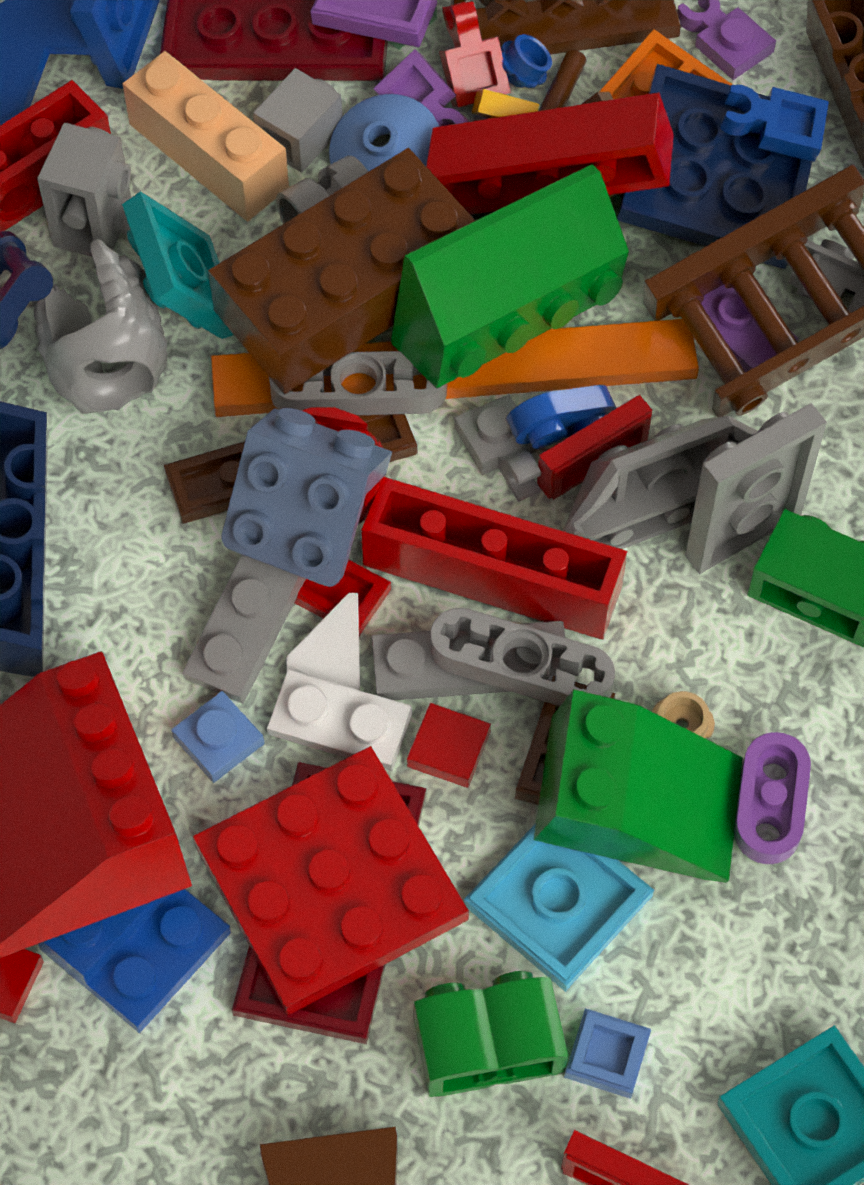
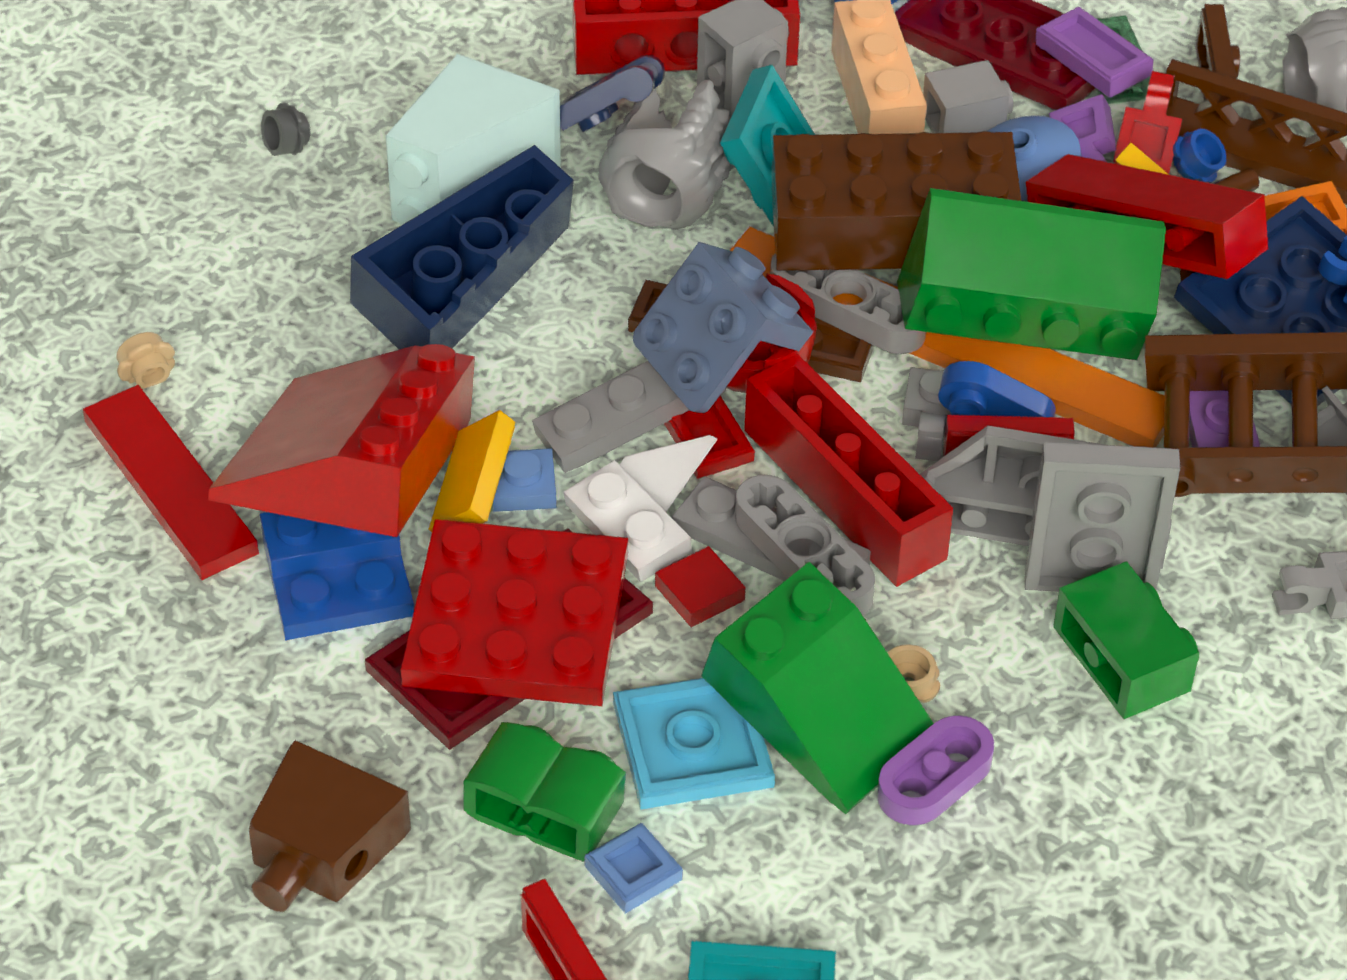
camera: 35 degrees right, 15 degrees down
(182, 765) = (474, 470): none -> yellow tile

